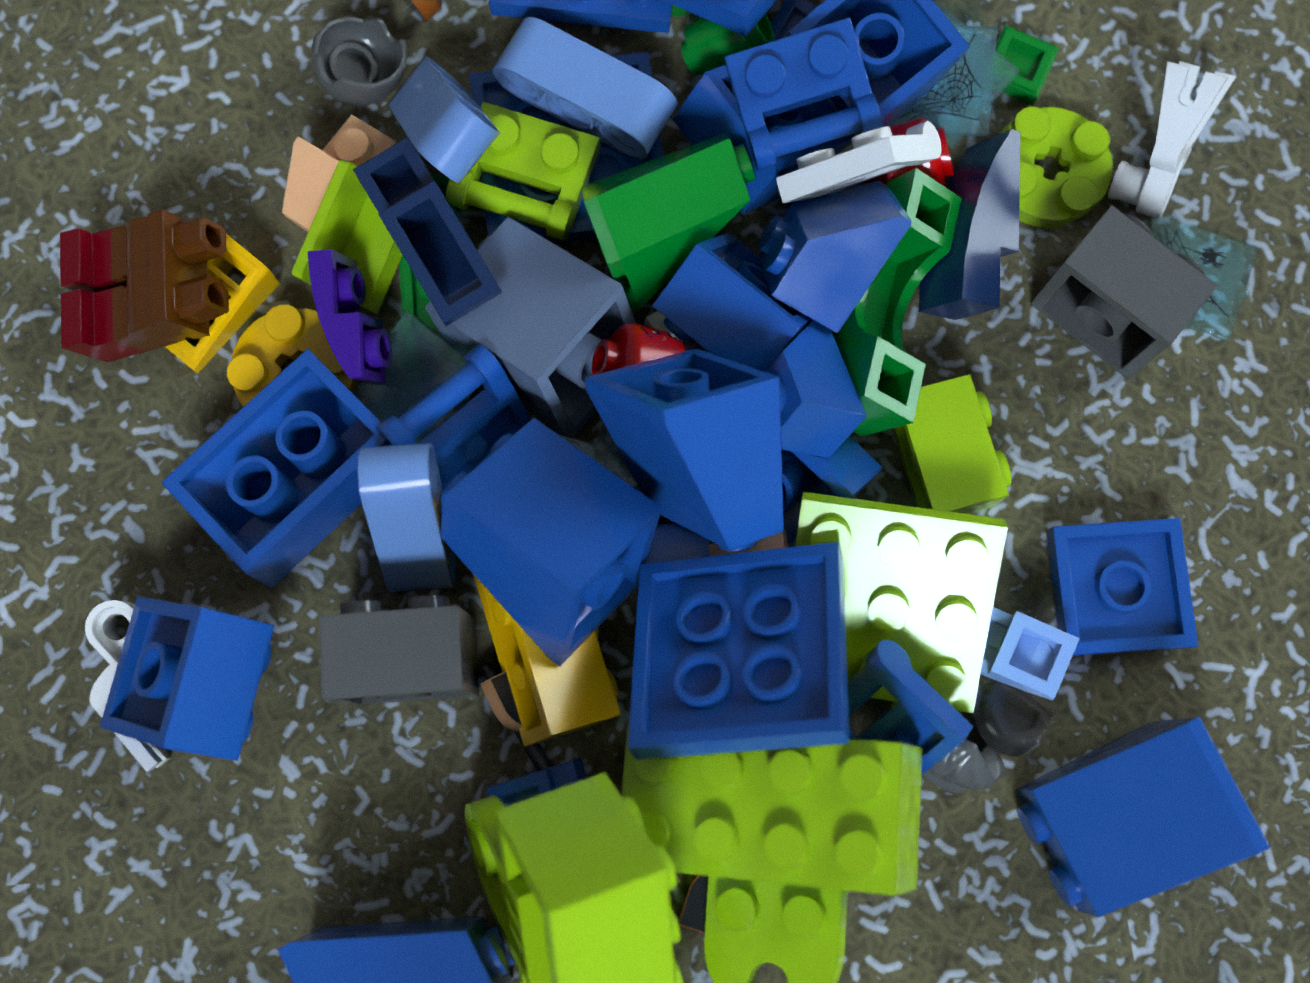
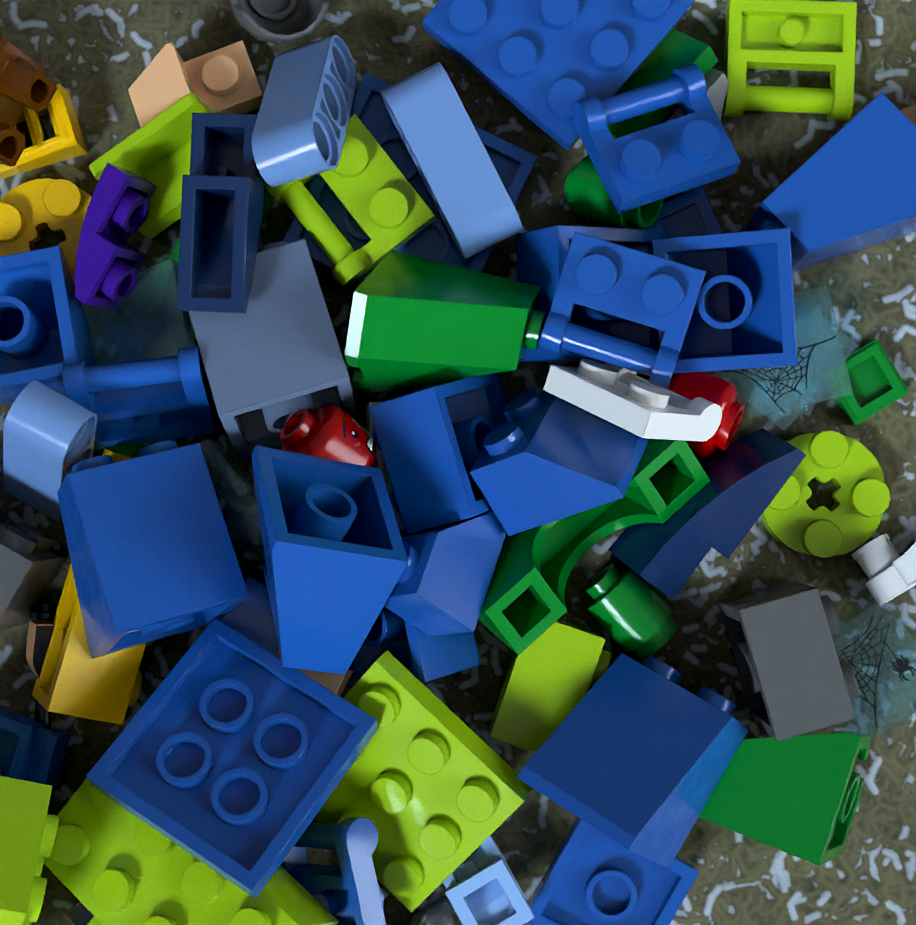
camera: 35 degrees right, 10 degrees up
(970, 346) = (630, 610): none -> green brick
(1069, 443) = (638, 757): none -> blue slope
(1189, 401) = (793, 792): none -> green slope

